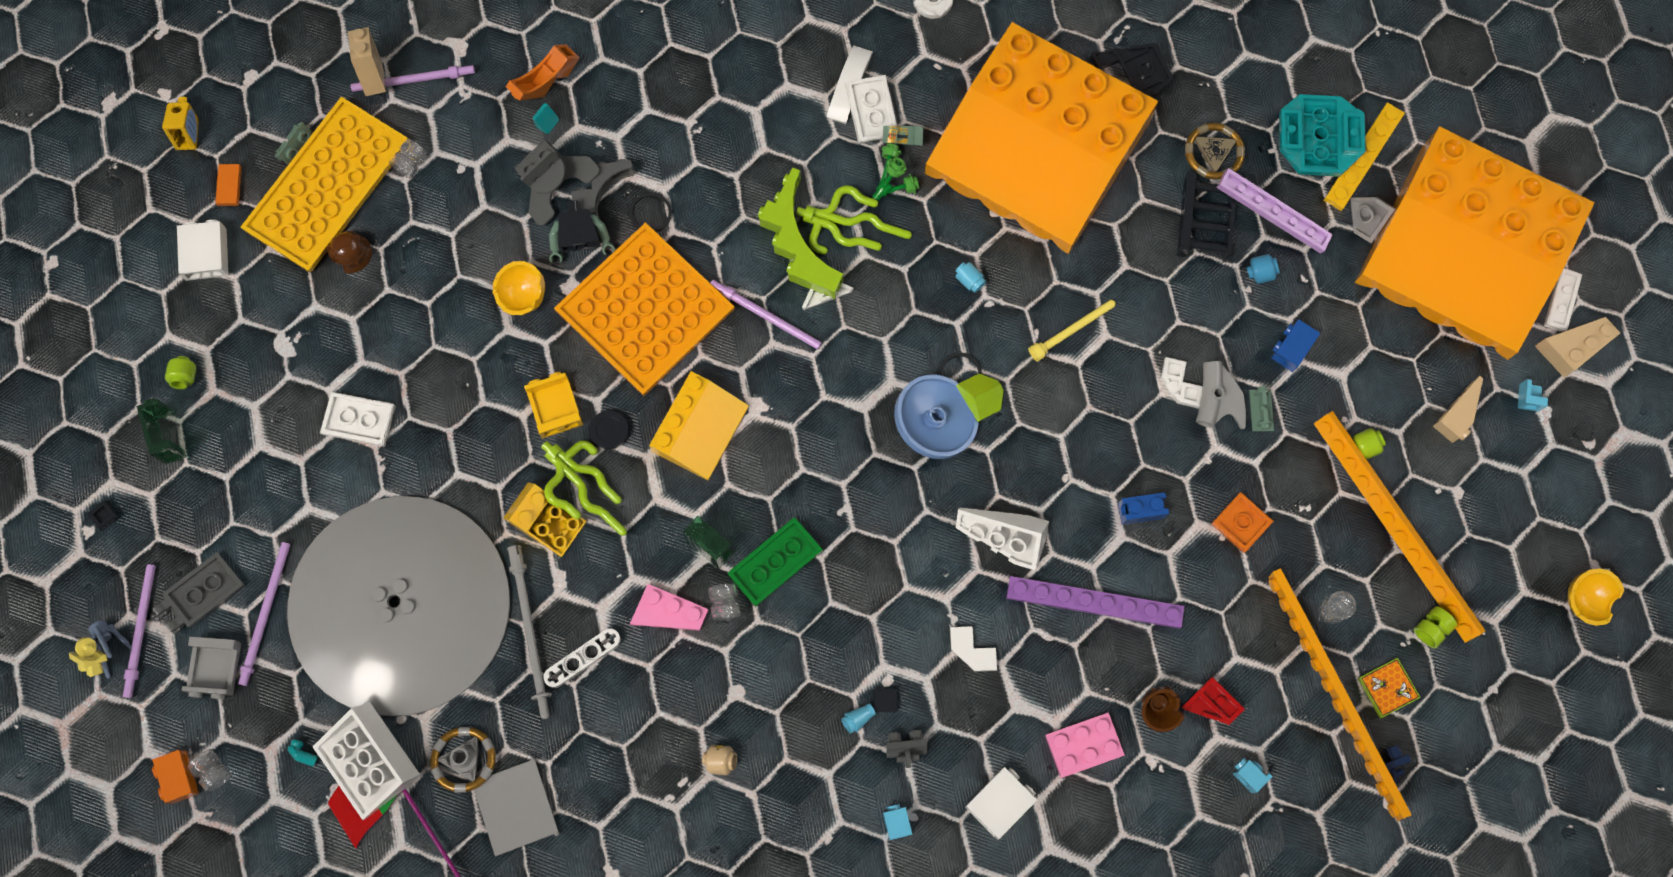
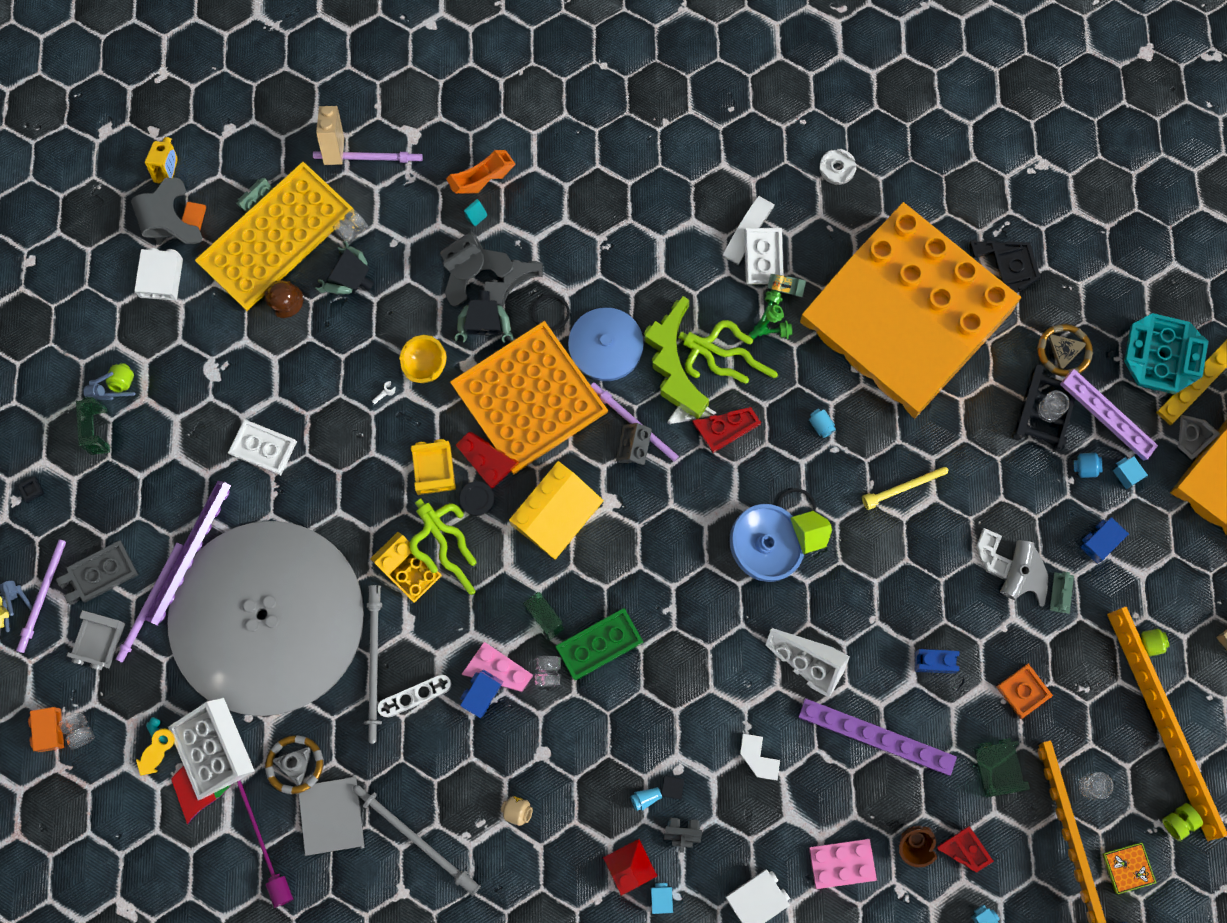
camera: 15 degrees right, 0 degrees up
(157, 391) = (97, 391): none -> sand blue plant
(188, 184) = (157, 215): none -> dark grey piece
(294, 560) = (185, 558): none -> plate
(303, 777) = (155, 752): none -> yellow brick
(415, 210) = (347, 273): none -> black torso
(483, 333) = (385, 392): none -> white hand
(612, 386) = (487, 460): none -> red wing
(655, 640) = (481, 693): none -> blue brick
(672, 844) = (459, 876): none -> light grey bar
(718, 236) = (606, 344): none -> medium blue dish
(770, 337) = (634, 443): none -> dark grey bracket
(855, 795) = (630, 867): none -> red slope
(866, 303) = (725, 428): none -> red wing
(1214, 212) = (1053, 406): none -> clear wheel
(1232, 609) = (1000, 768): none -> clear green panel
(1308, 268) = (1129, 472): none -> medium azure brick

